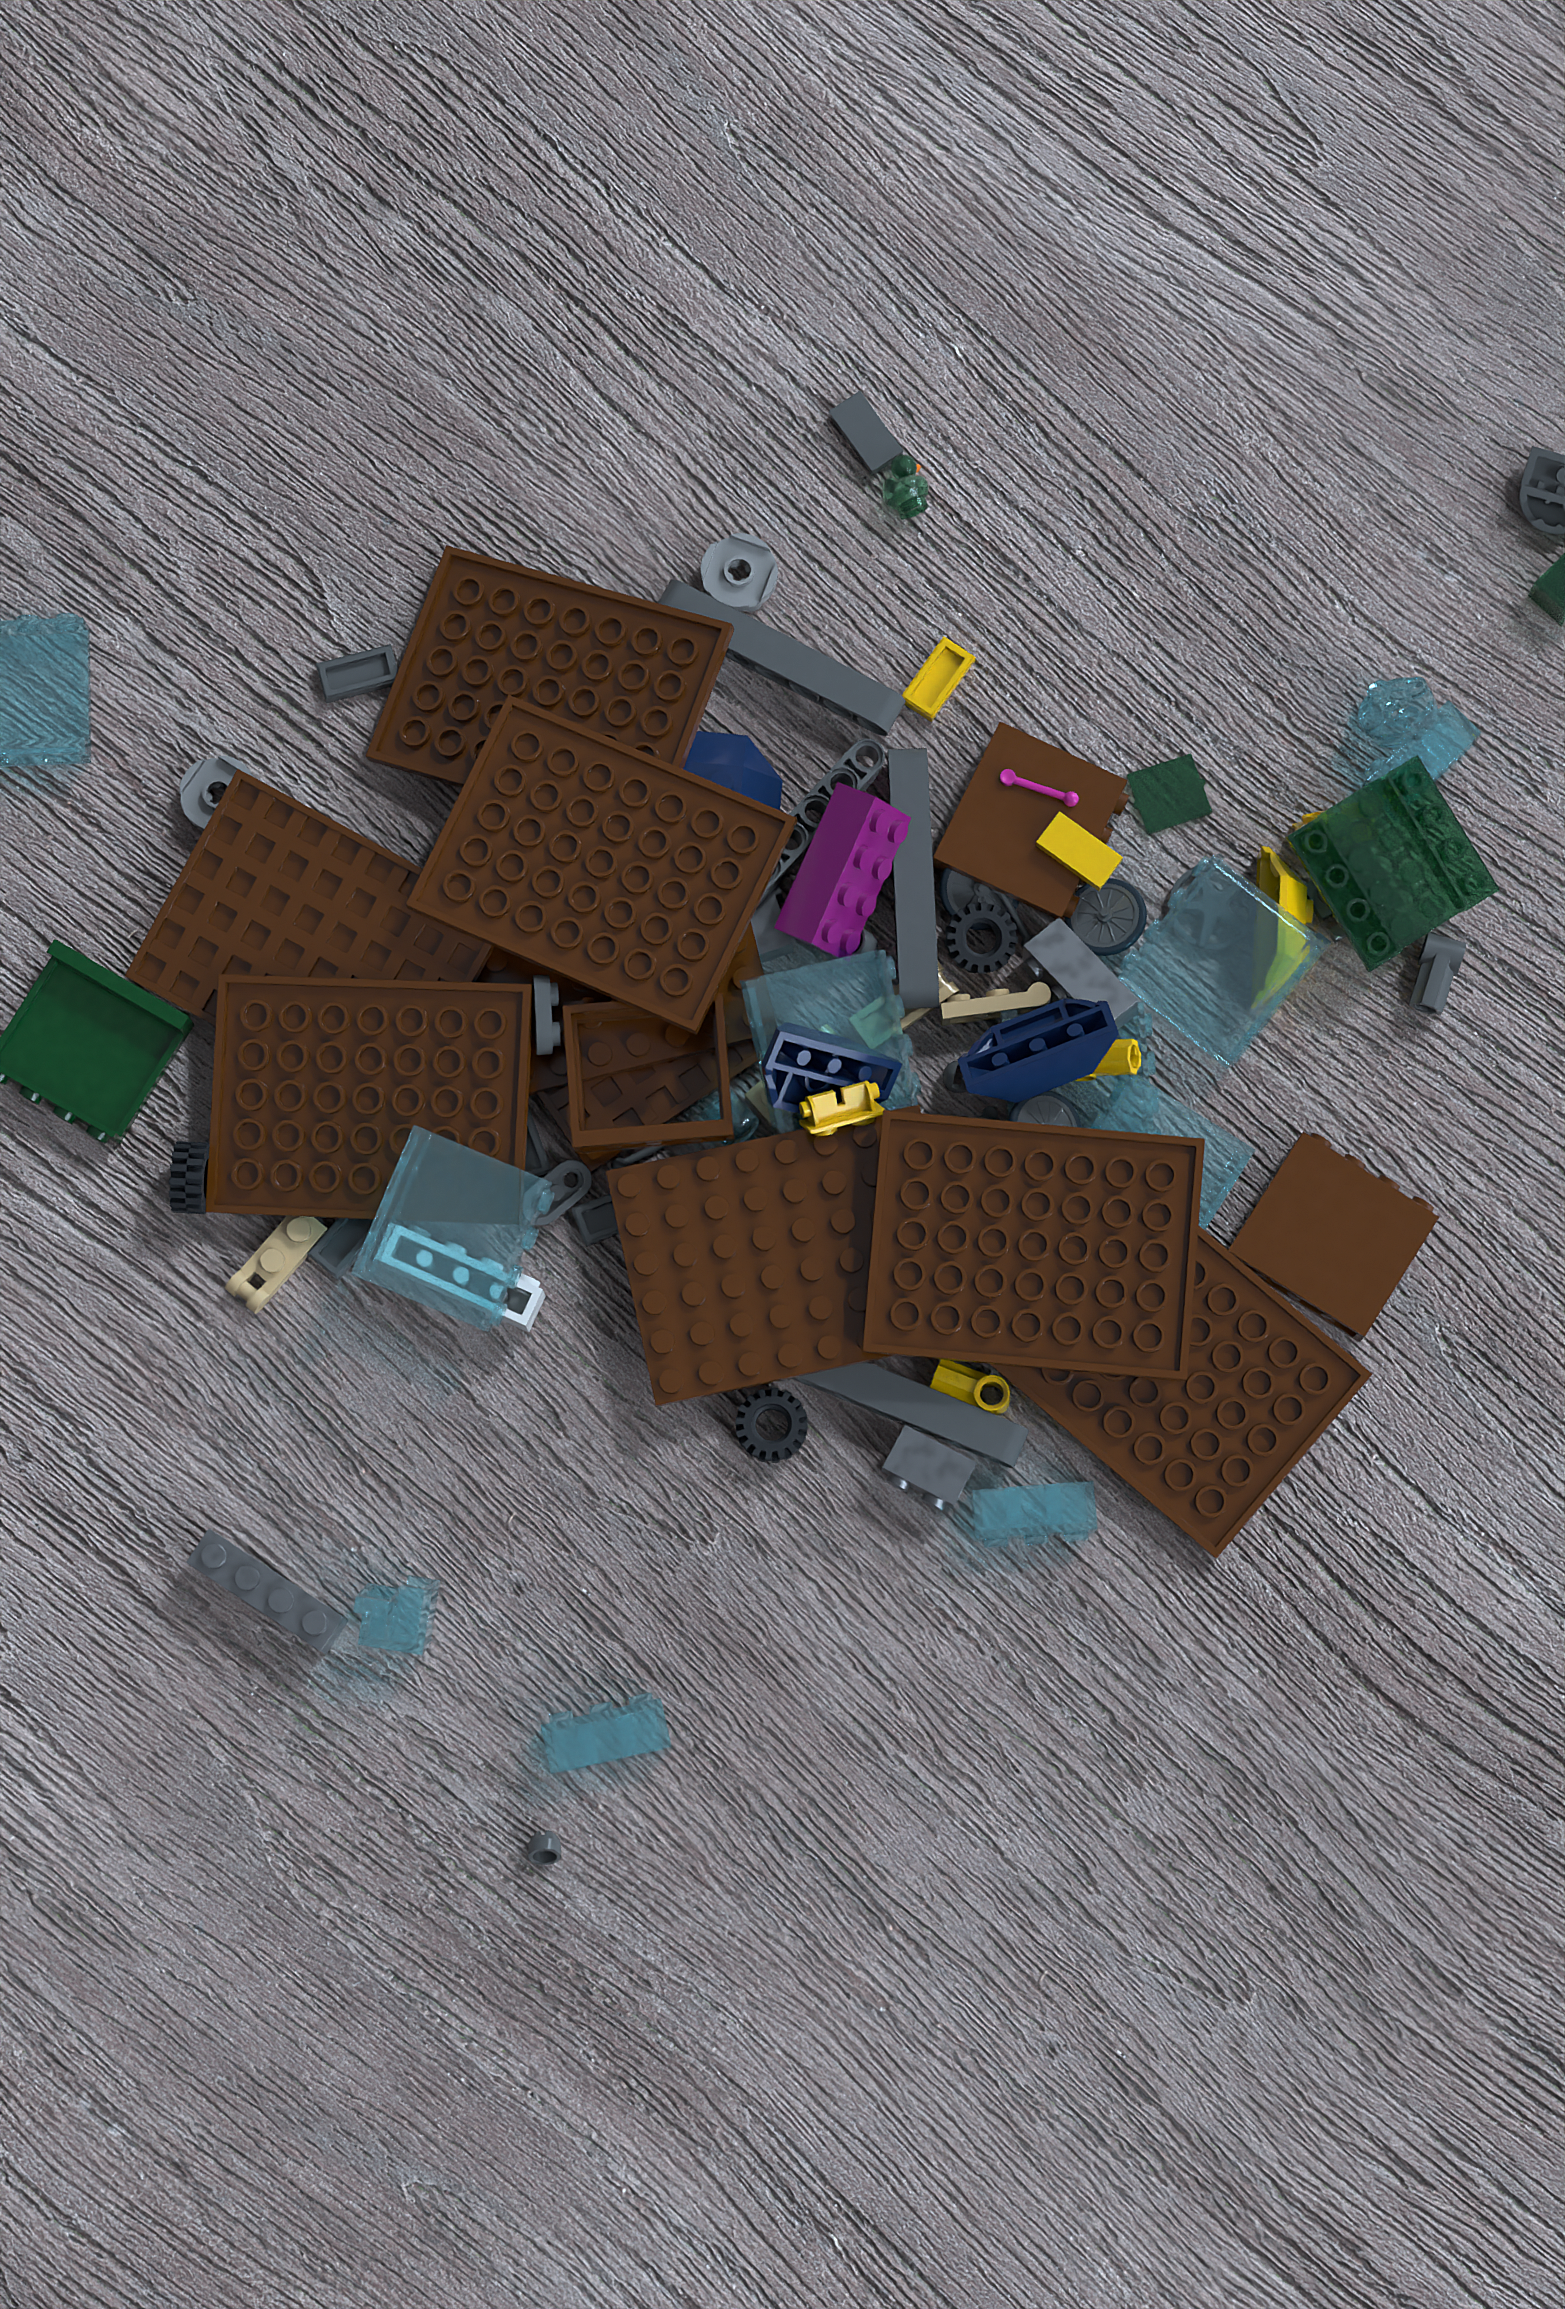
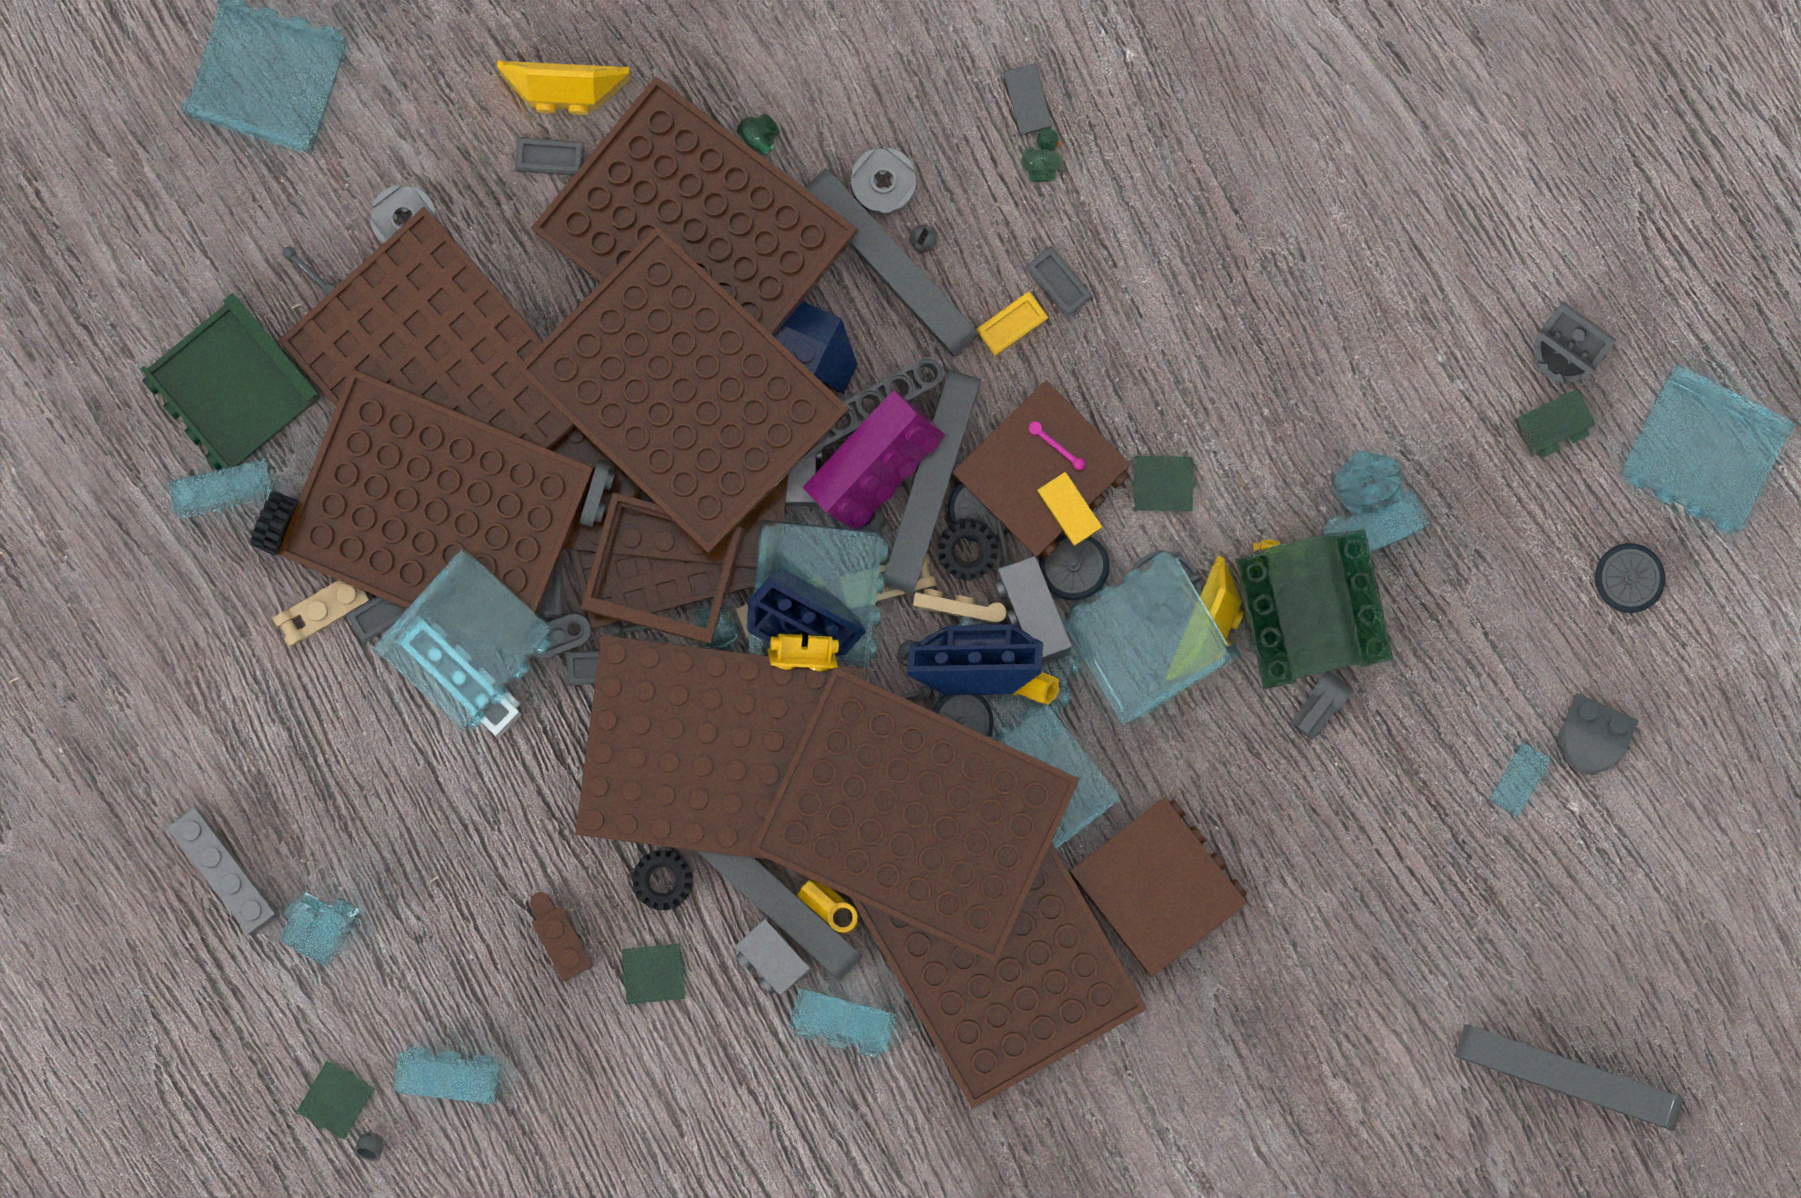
camera: 15 degrees right, 5 degrees up
(104, 878) = (289, 253): none -> dark grey hinge
(116, 1162) = (221, 489): none -> clear light blue brick
(346, 590) = (564, 85): none -> yellow wedge
(486, 1808) = (335, 1100): none -> clear green piece
(582, 565) = (759, 133): none -> clear green animal
(678, 1531) = (559, 937): none -> reddish brown brick
(798, 1536) = (653, 974): none -> clear green piece
(814, 621) = (929, 241): none -> dark grey hinge
(972, 616) = (1059, 281): none -> dark grey tile

